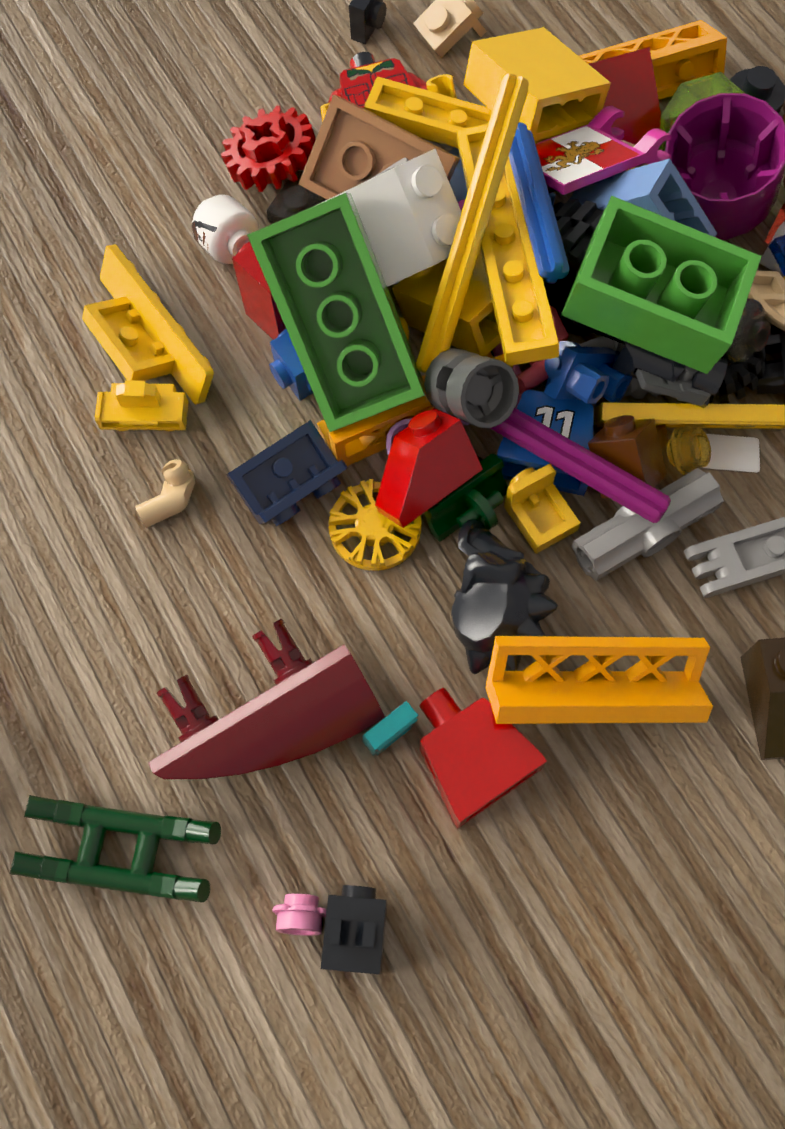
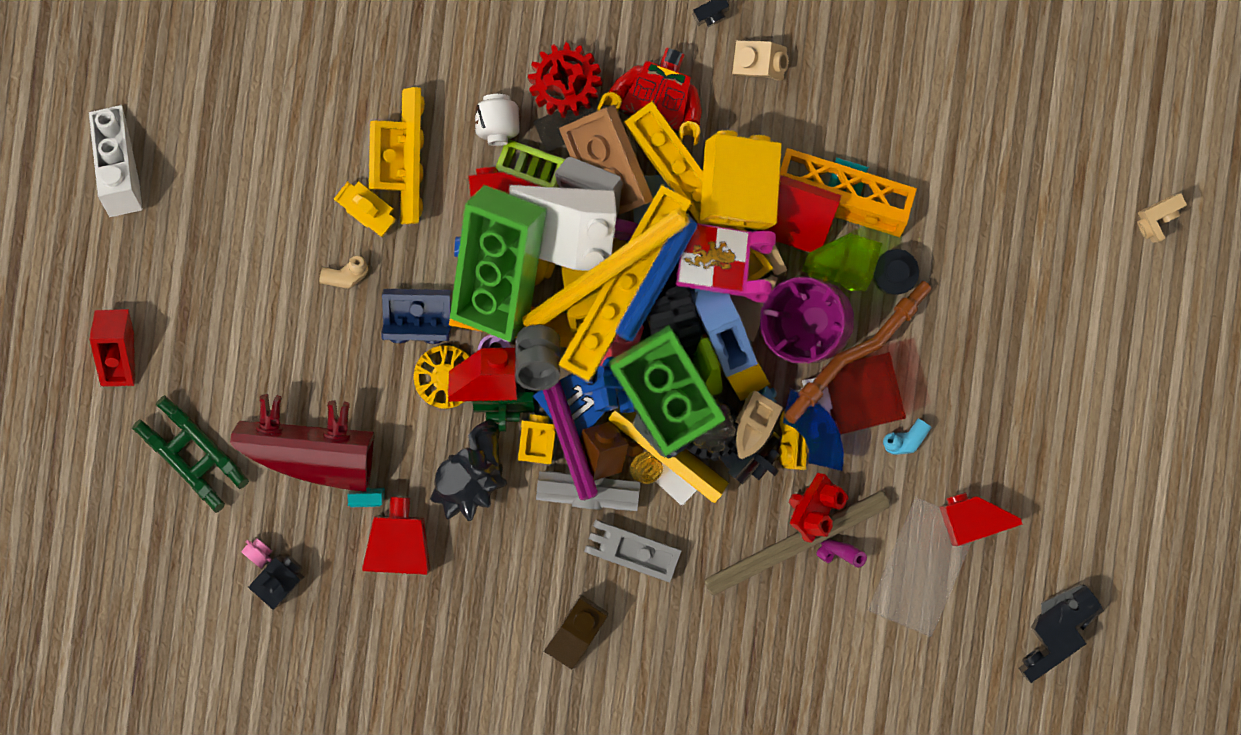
camera: 30 degrees right, 20 degrees up
(593, 691) = (483, 558): light orange fence -> none

